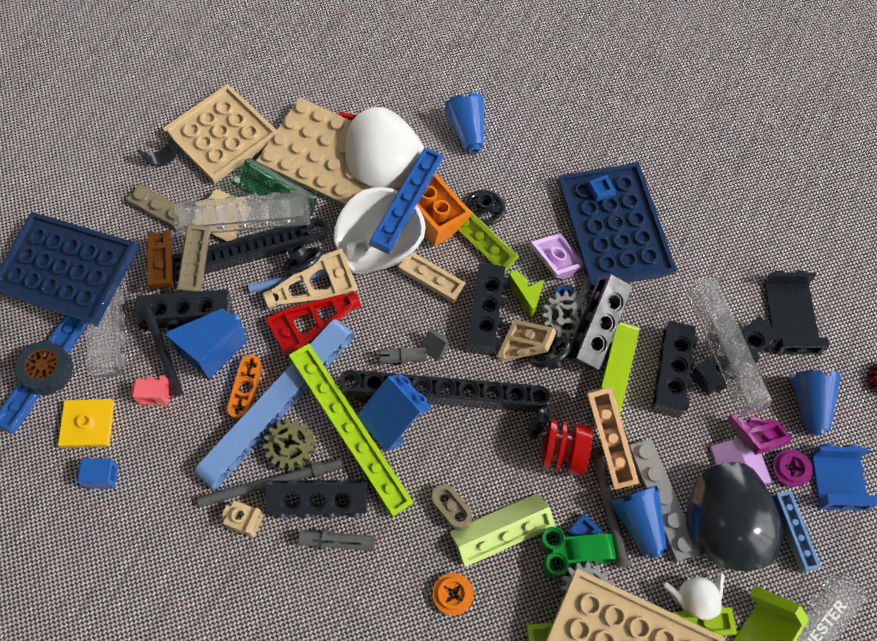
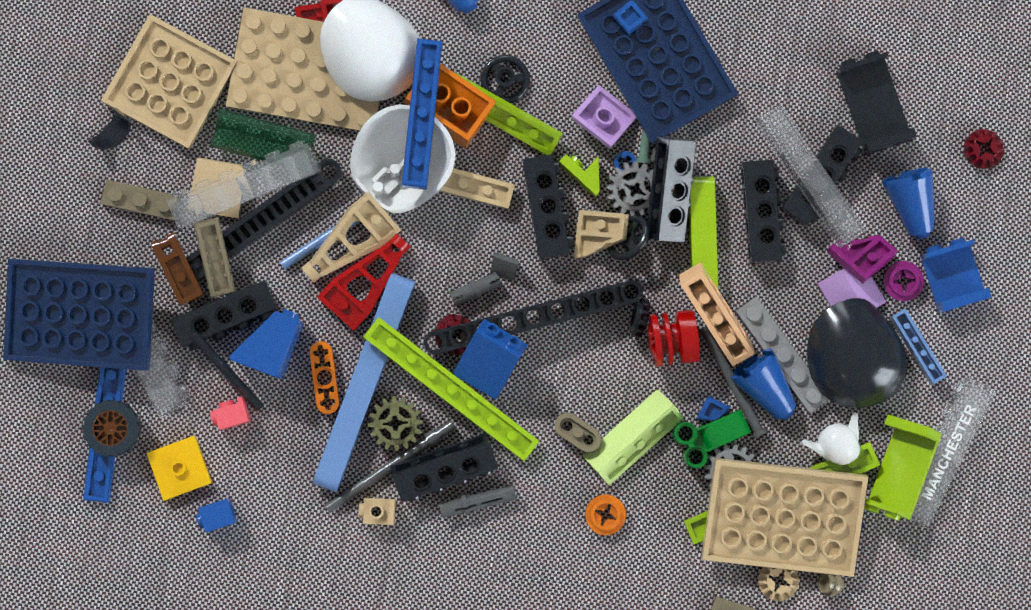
camera: 20 degrees left, 20 degrees up
(300, 256) = (327, 214): black piece -> none

